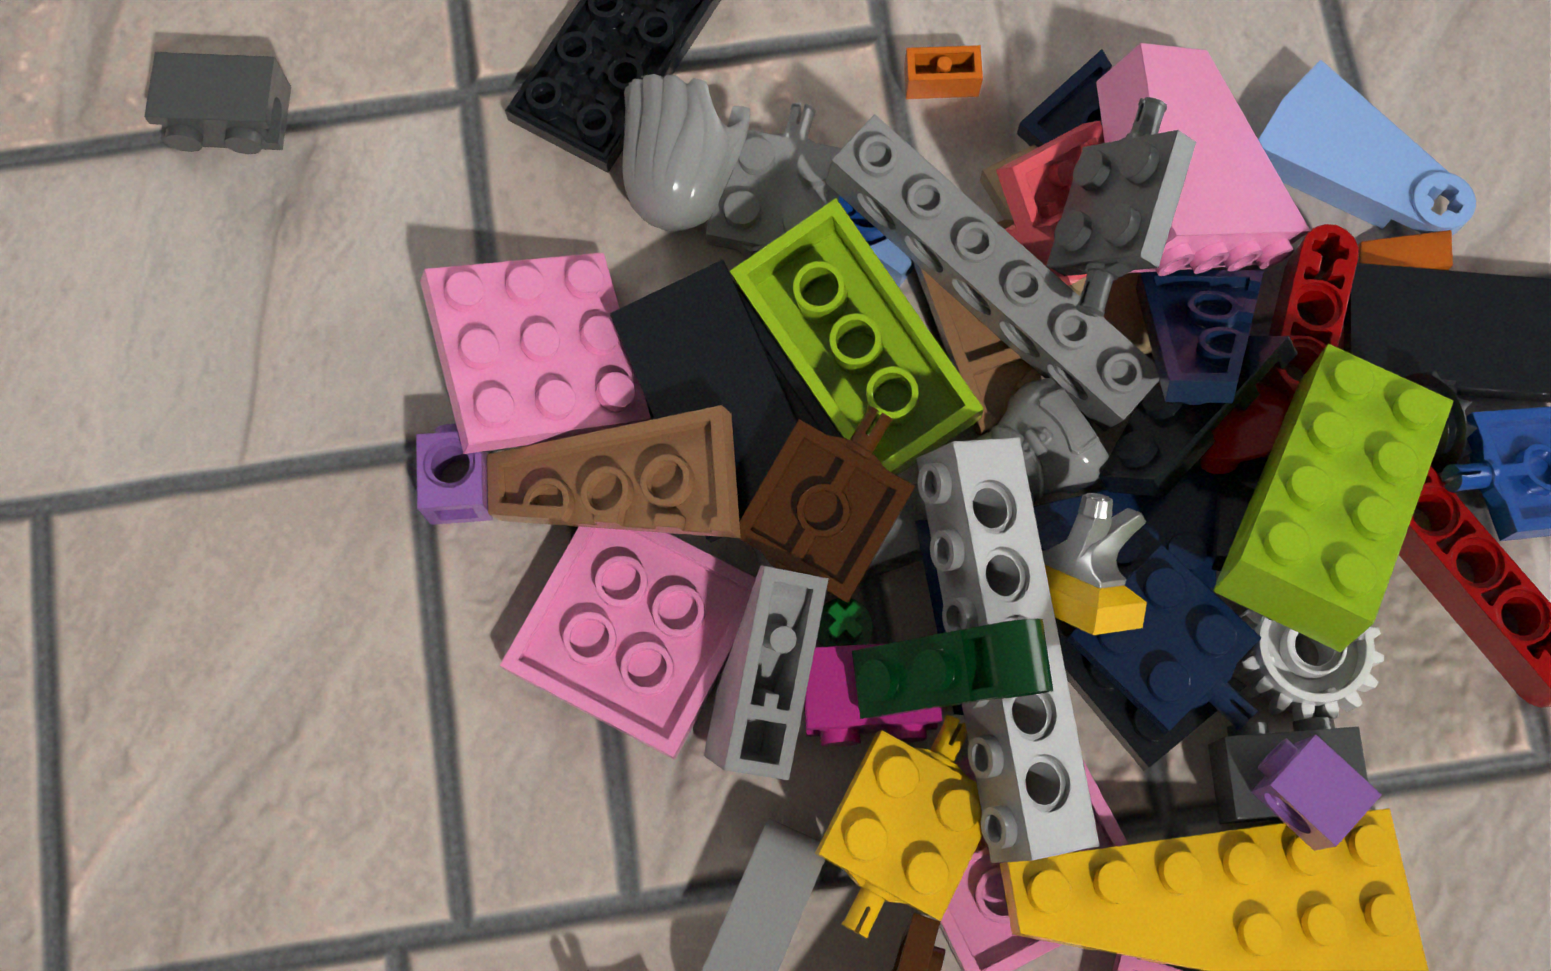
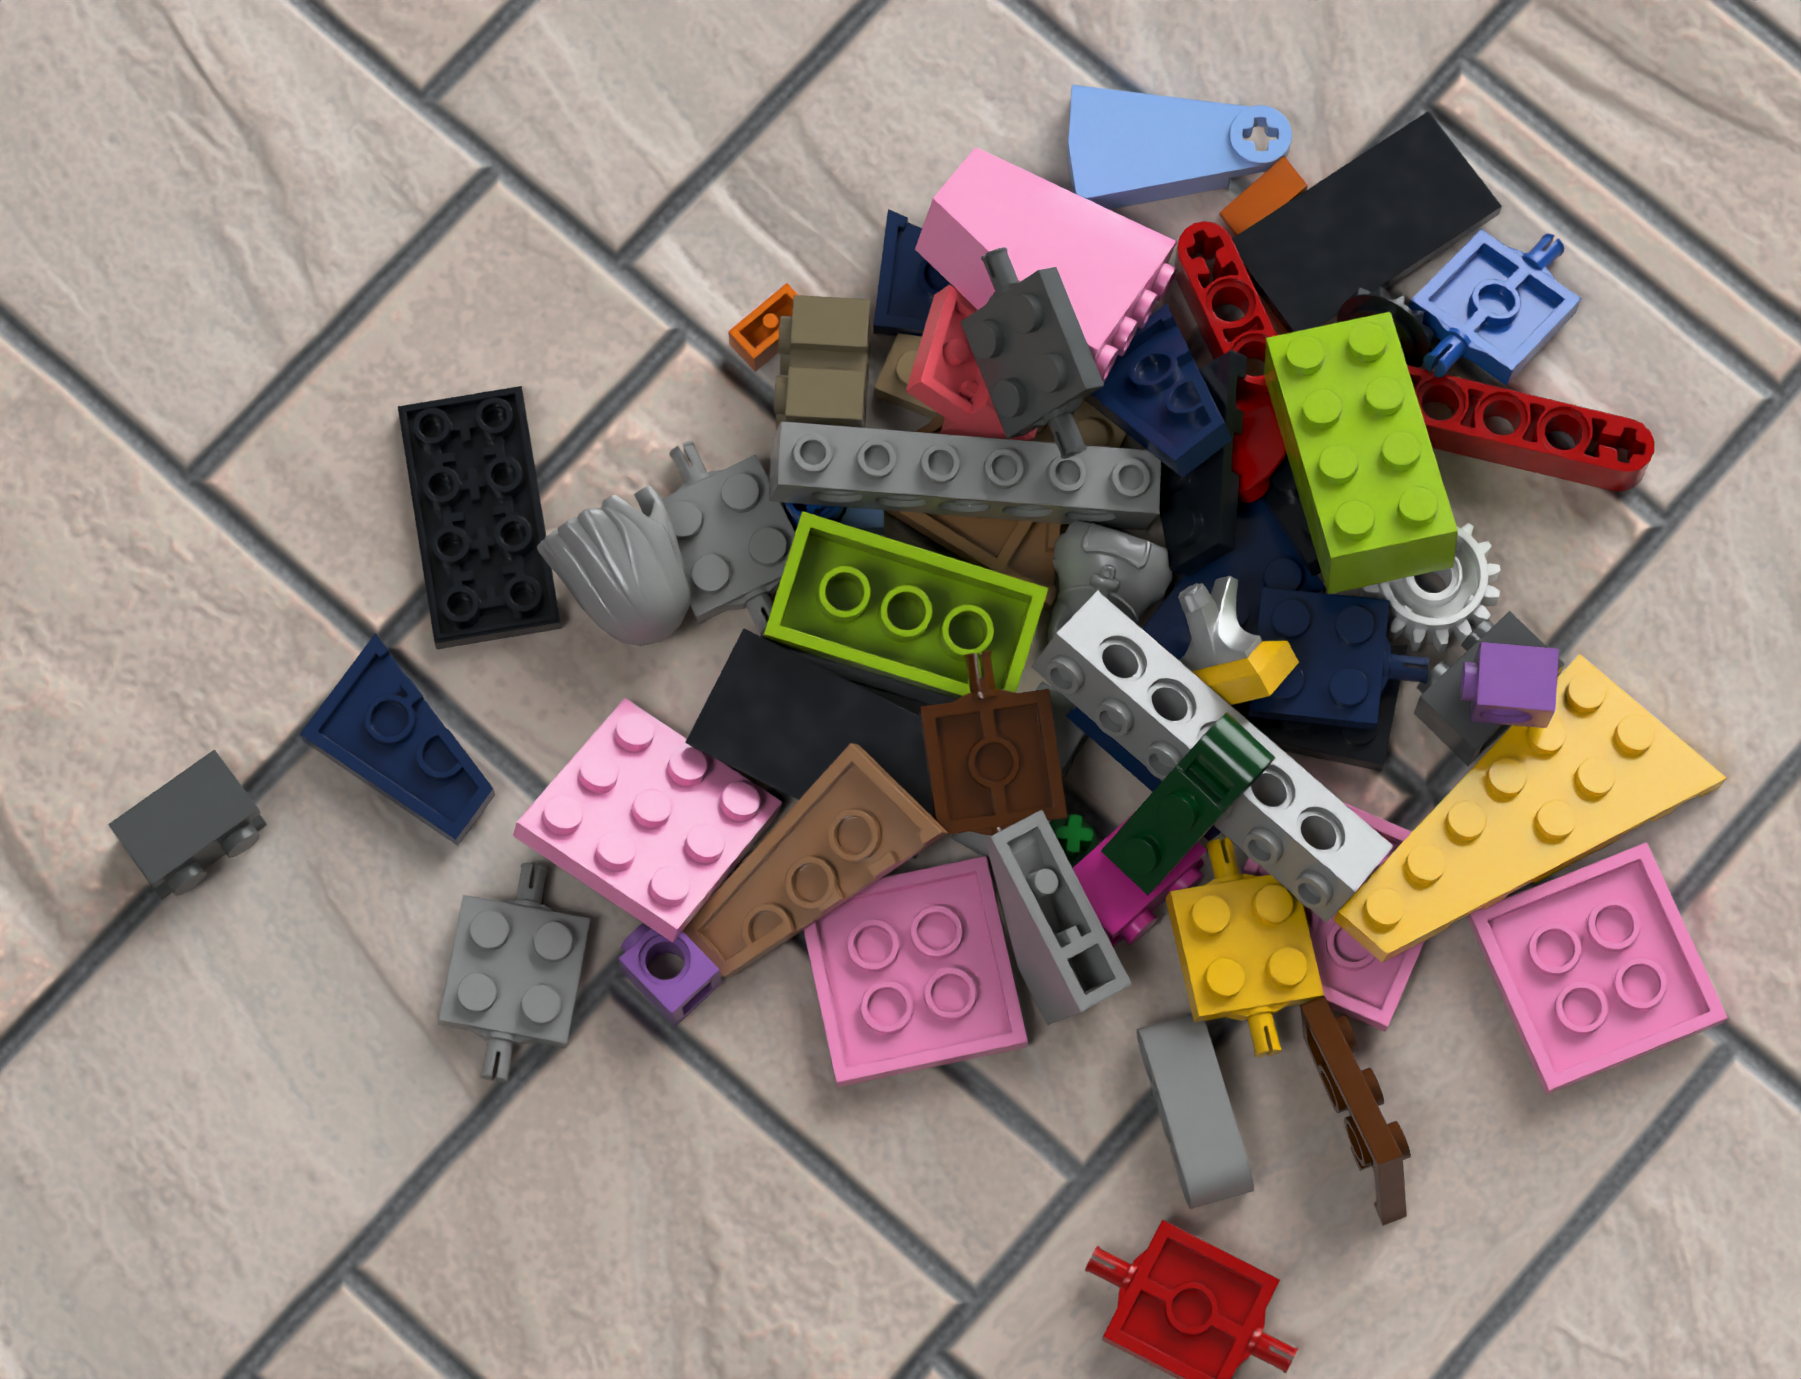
camera: 40 degrees left, 0 degrees up
(347, 388) = (514, 972): none -> light grey plate
(414, 161) = (398, 746): none -> dark blue wing
(961, 112) = (824, 362): none -> dark tan brick

